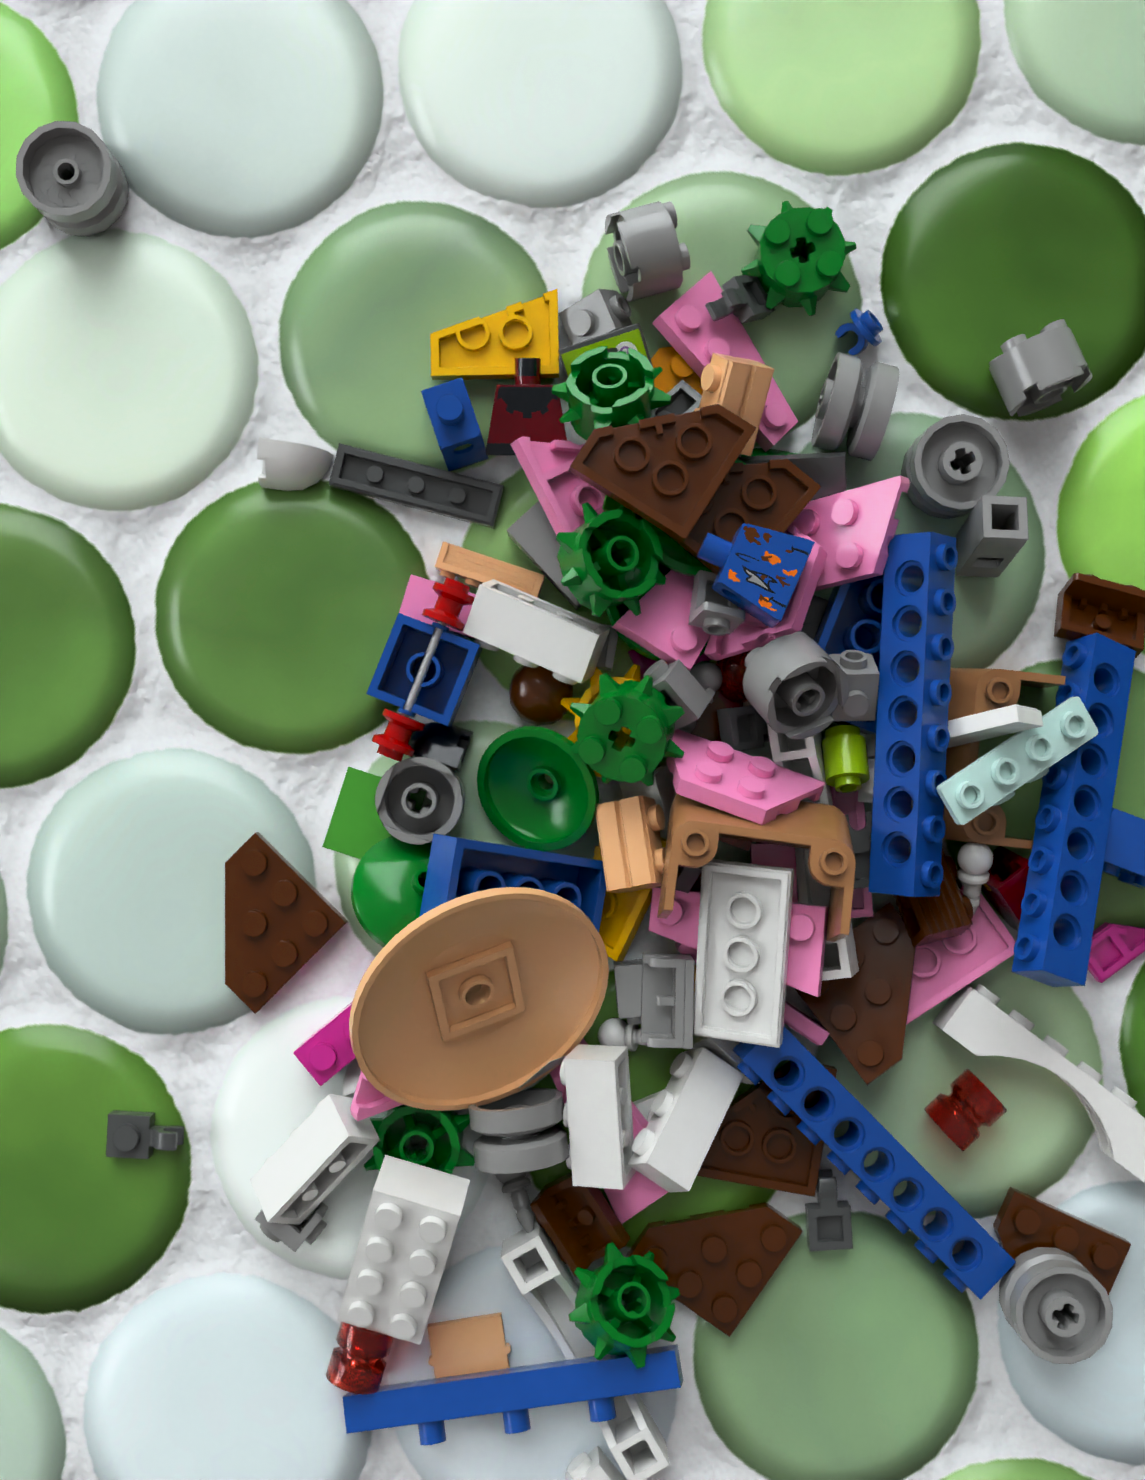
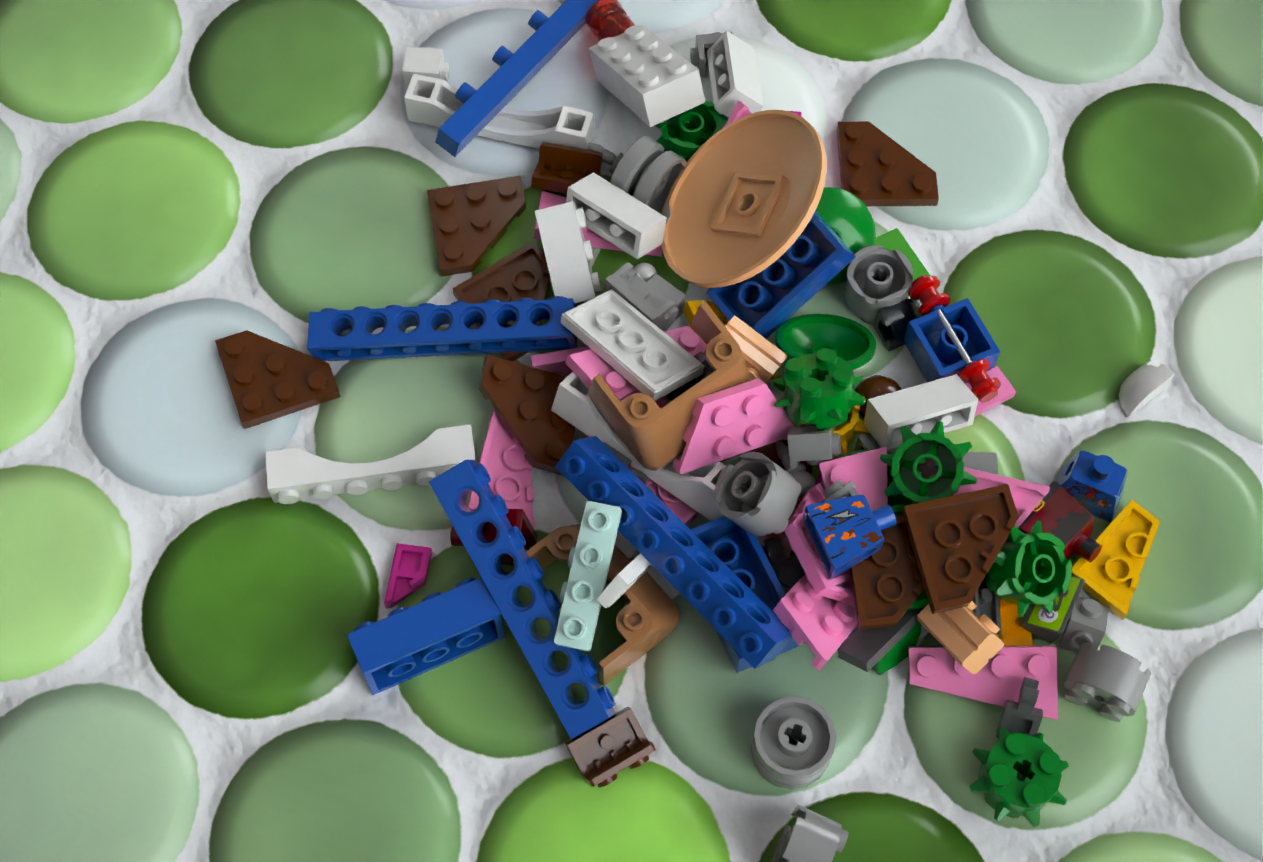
camera: 135 degrees right, 25 degrees down
(136, 1135) = (827, 25): dark grey plate -> none
(416, 485) = (1062, 443): dark grey tile -> none
(468, 1345) = (557, 78): light nougat piece -> none
(481, 568) = (986, 428): light nougat piece -> none
(646, 1298) = (490, 134): green brick -> none
(828, 1220) = (431, 286): dark grey plate -> none
(845, 758) = (682, 504): lime brick -> none
(855, 405) = (891, 710): light grey wheel -> none
(863, 686) = (723, 538): light grey bracket -> none
(865, 326) = (934, 776): blue plate -> none
(937, 916) = (544, 484): reddish brown brick -> none
(965, 1110) = (412, 401): clear red wheel -> none
(974, 865) = (540, 518): white bar -> none
(992, 536) = (731, 710): light grey brick -> none
(1056, 1305) = (265, 341): light grey wheel -> none

